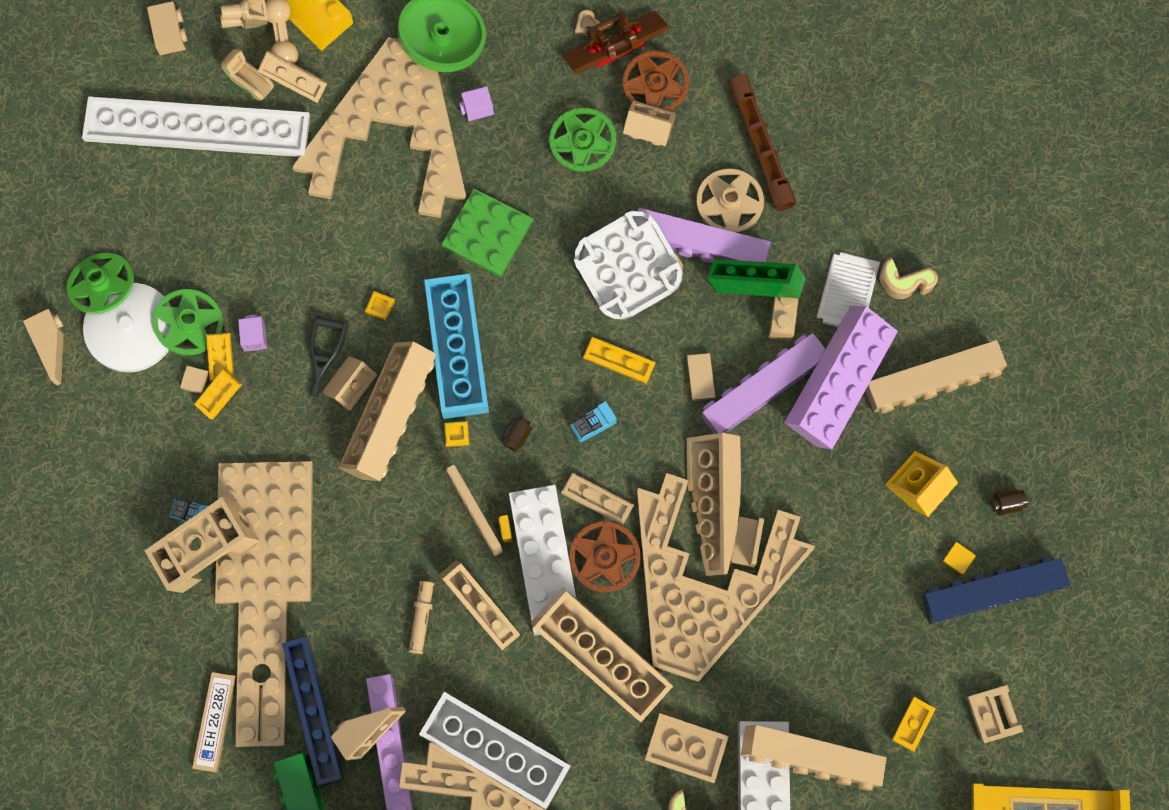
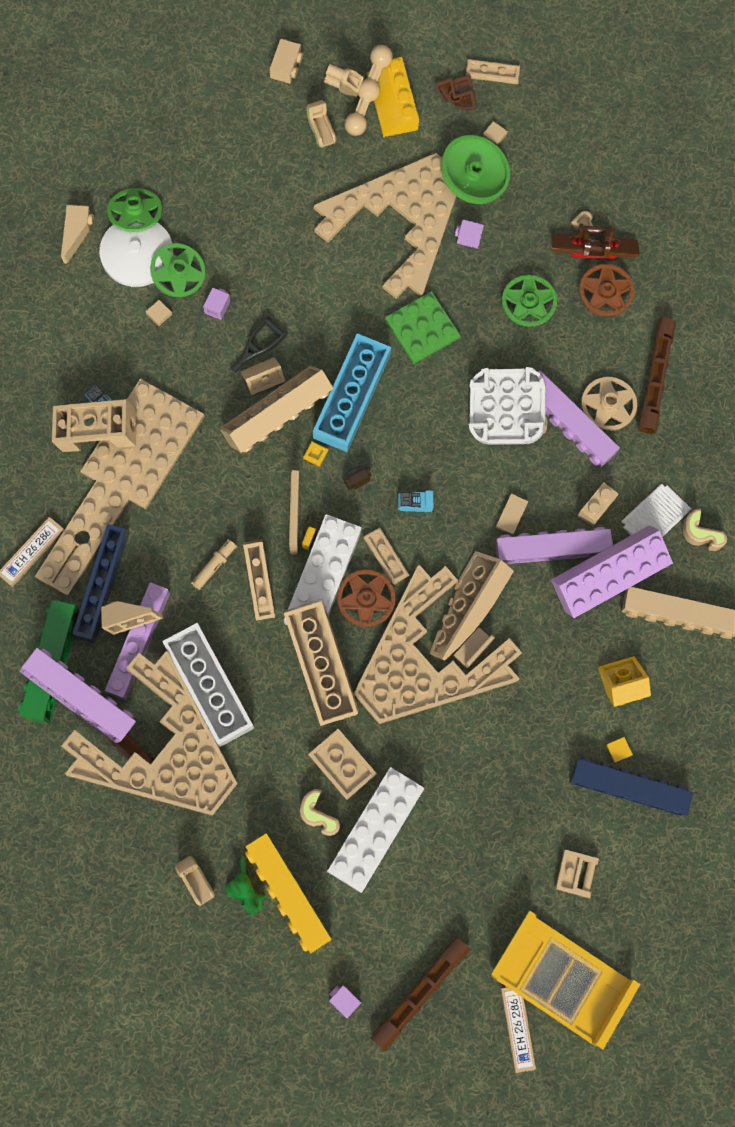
camera: 25 degrees right, 0 degrees up
(196, 126) = (265, 140): white plate -> none
(217, 394) = (168, 331): yellow plate -> none
(219, 354) = (185, 306): yellow plate -> none
(292, 76) = (351, 142): tan tile -> none
(380, 305) = (316, 335): yellow tile -> none
(619, 360) = (461, 469): yellow tile -> none
(649, 123) = (583, 316): tan brick -> none
(756, 278) = (592, 466): green brick -> none
(813, 756) = (426, 822): tan brick -> none
(913, 724) = (513, 845): yellow plate -> none
(1008, 501) = (680, 731): dark brown brick -> none

